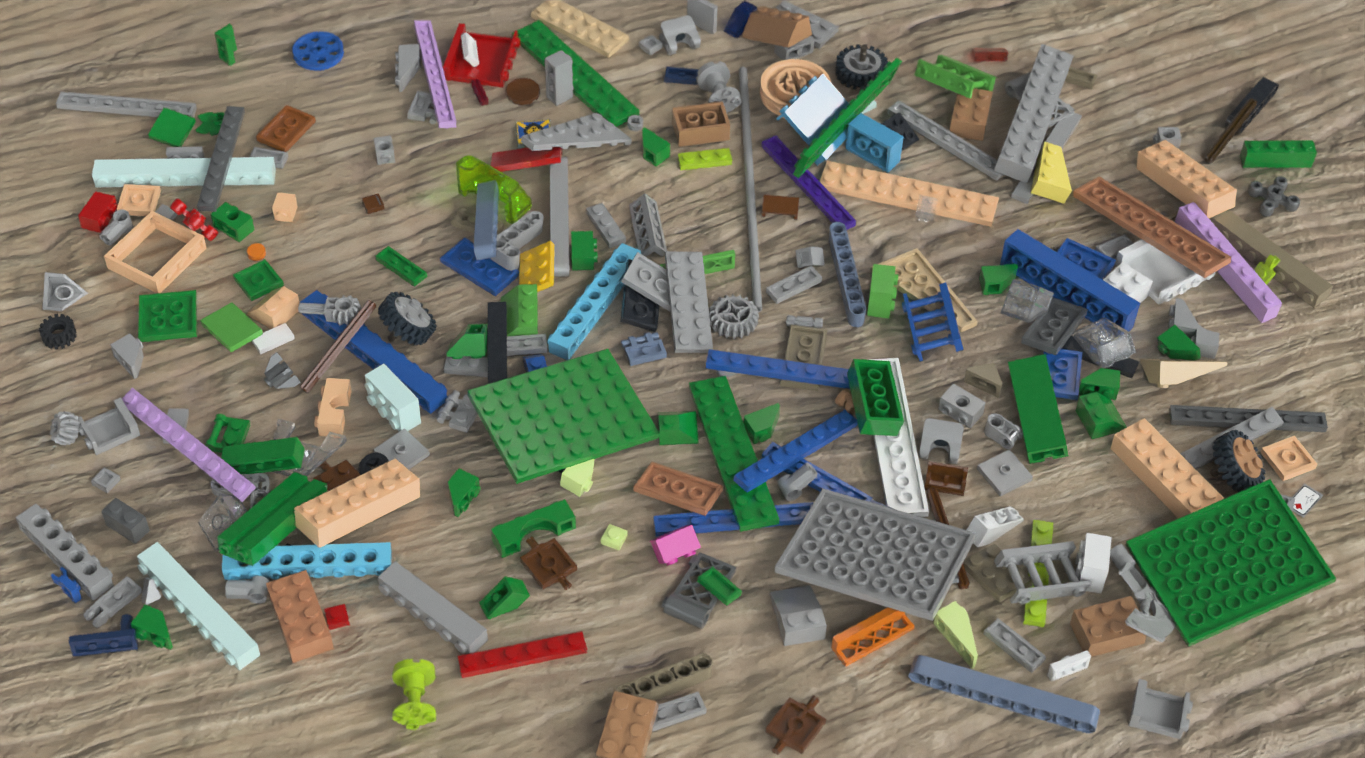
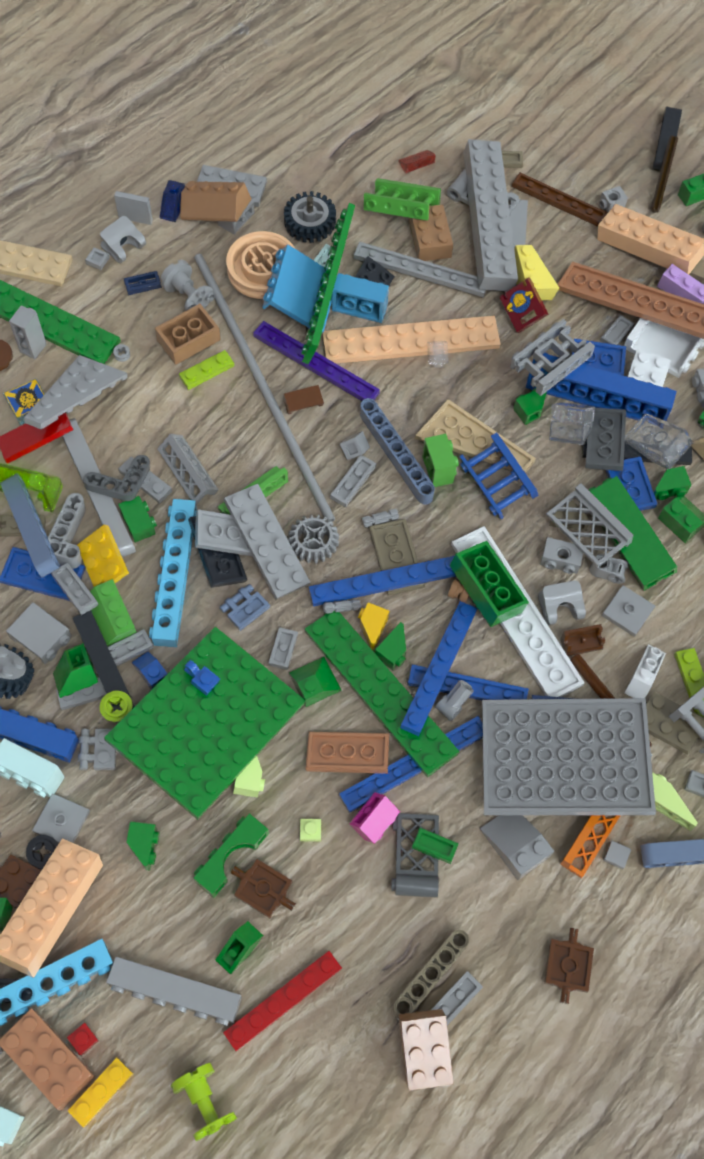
camera: 25 degrees left, 15 degrees up
(331, 660) = (100, 1092): none -> yellow plate
(454, 306) = (39, 633): none -> light grey panel
(491, 371) = (114, 698): none -> lime gear
(500, 281) = (74, 589): none -> light grey plate
(574, 379) = (202, 679): none -> blue plate
(582, 221) = (120, 485): none -> dark grey beam
(654, 147) = (153, 376): green slope -> none
(661, 391) = (283, 648): none -> light grey plate
(731, 376) = (341, 606): none -> light grey axle
(755, 397) = (373, 623): none -> yellow slope
(889, 659) = (617, 855): none -> light grey tile
(1014, 383) = (603, 517): none -> light grey fence
(1026, 190) = (520, 302): none -> dark red container
(1029, 247) = (557, 369): none -> light grey fence
(1111, 122) = (558, 199): none -> reddish brown tile

